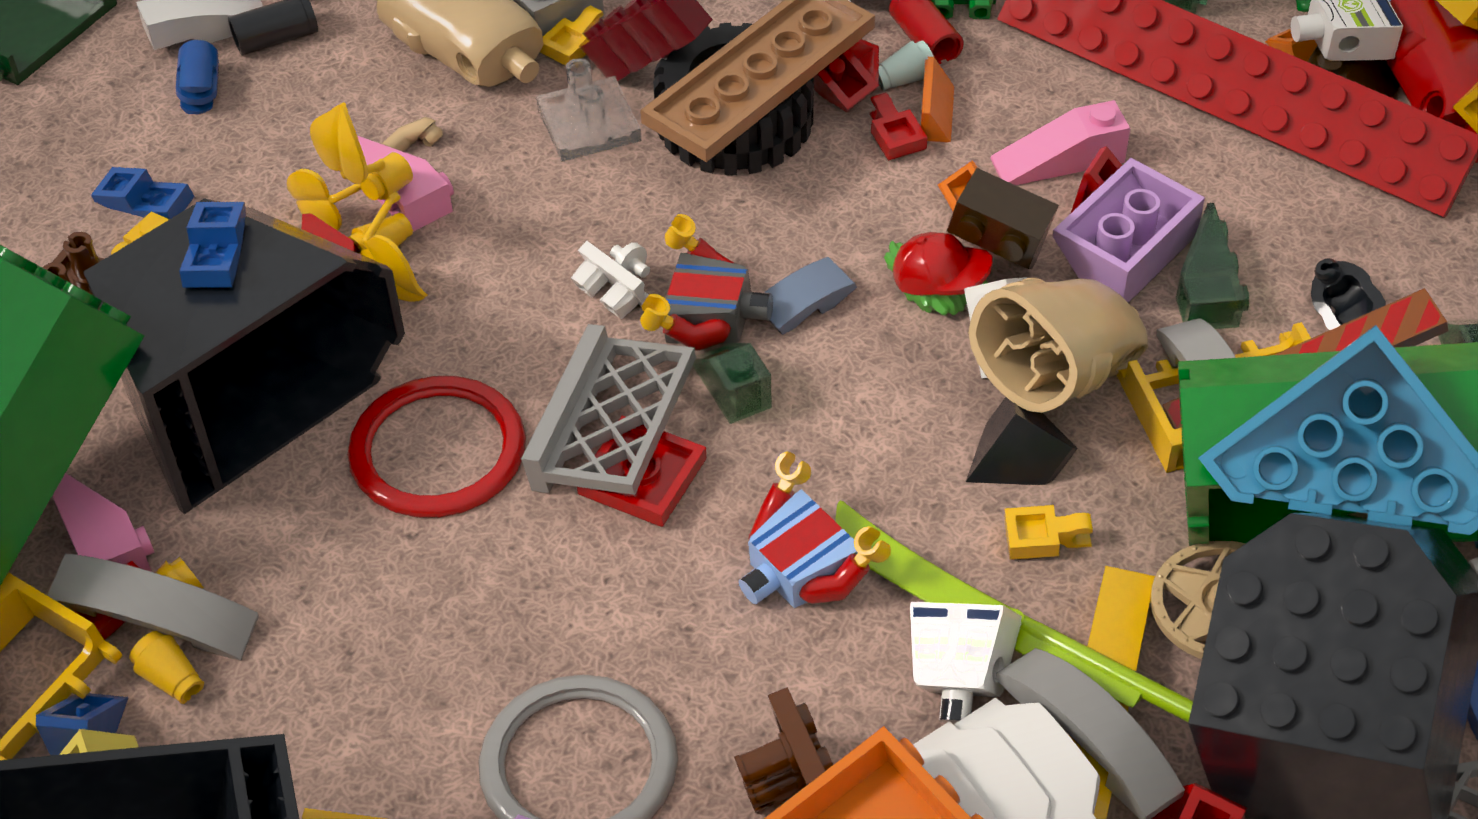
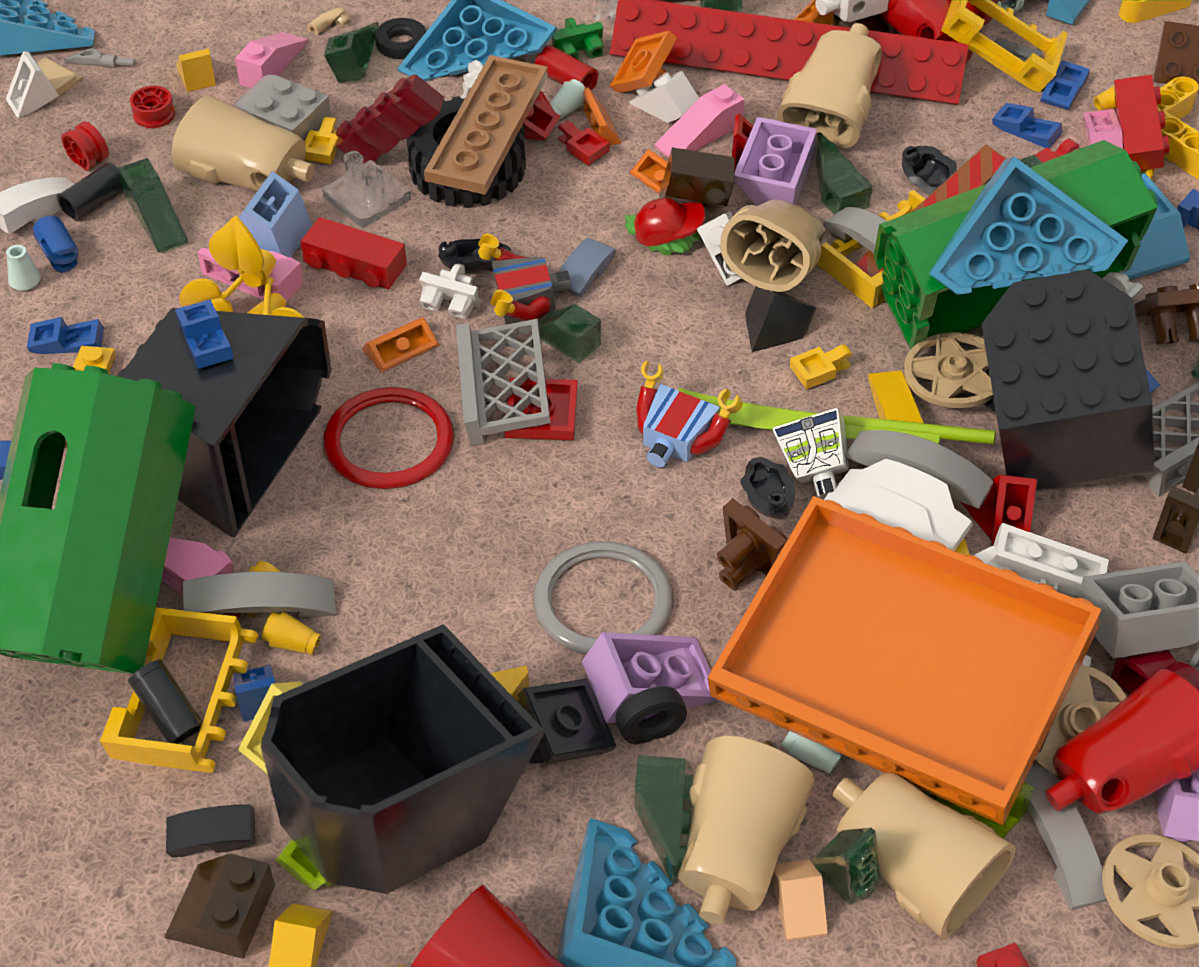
camera: 25 degrees left, 0 degrees up
(137, 98) = (21, 269): none -> light aqua cone
(325, 56) = (151, 204): none -> clear green slope
(449, 119) = (277, 216): none -> light blue slope
(520, 327) = (401, 344): none -> orange slope
(526, 191) = (353, 253): none -> red brick
(650, 231) = (465, 253): none -> black arm
(875, 683) = (768, 487): none -> black arm
(1025, 46) = (643, 62): none -> orange tile
(1034, 96) = (666, 98): none -> white slope
(1260, 145) = (834, 86): none -> tan torso

